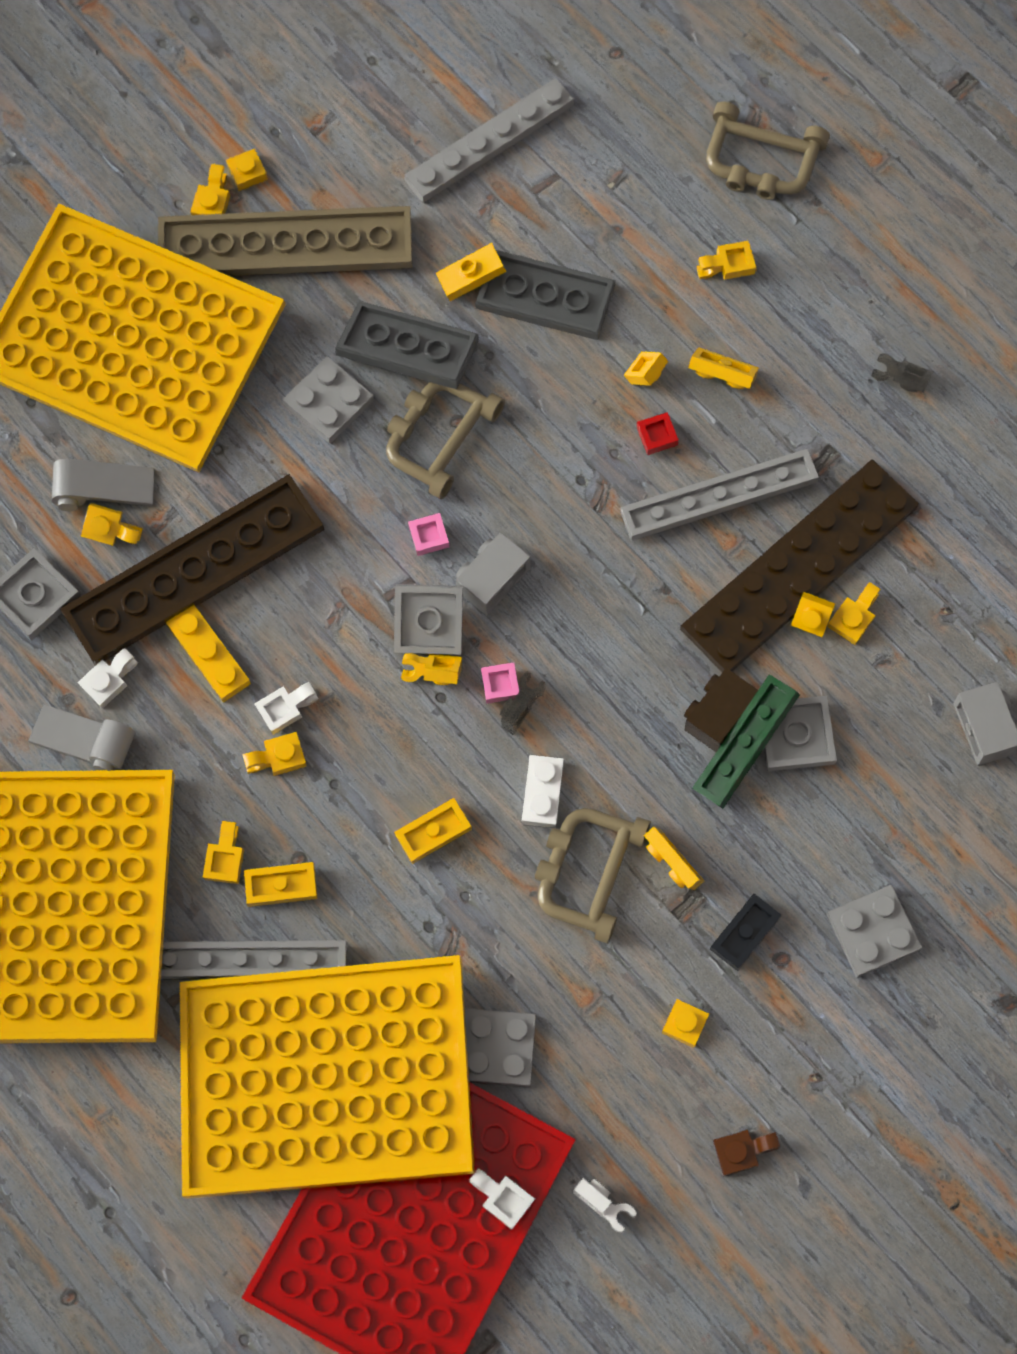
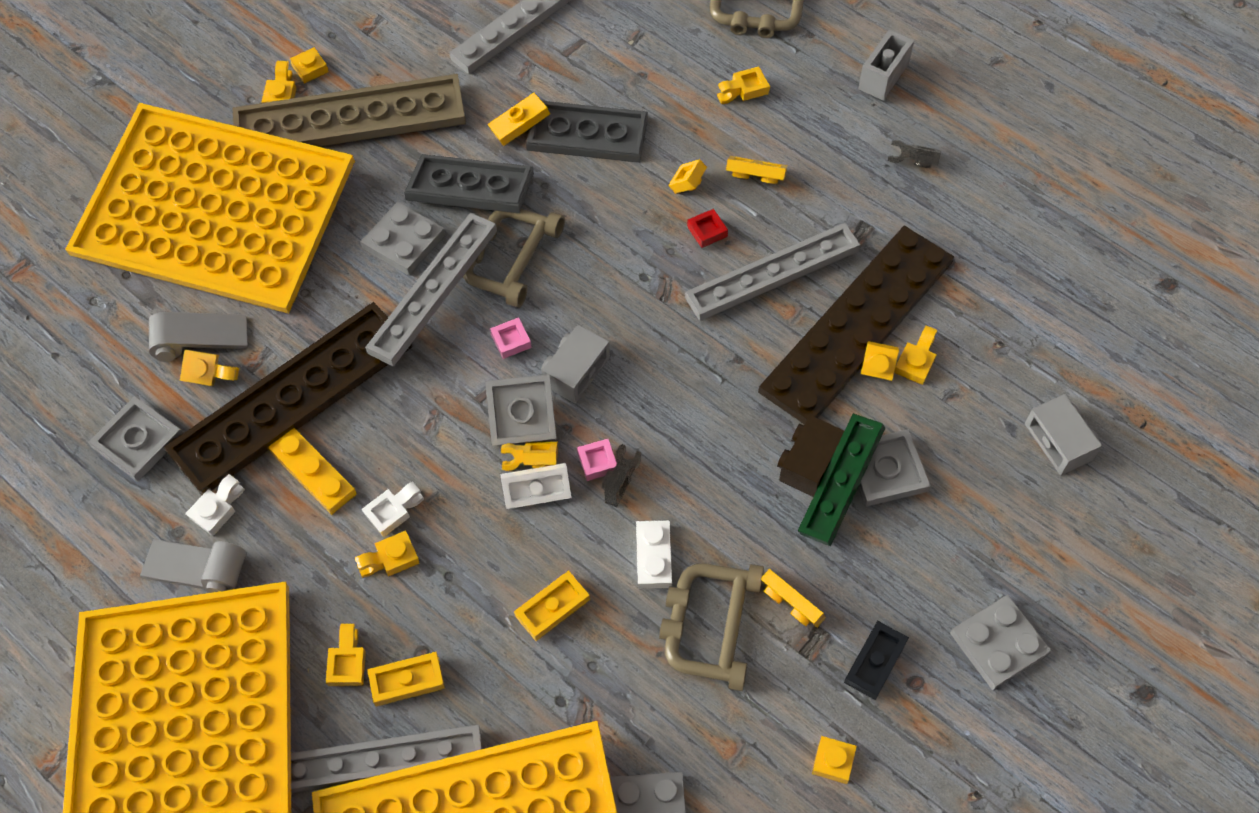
camera: 10 degrees left, 10 degrees down
(352, 469) = (431, 289): none -> light grey plate
(433, 703) = (536, 486): none -> white plate
(891, 259) = (886, 64): none -> light grey brick

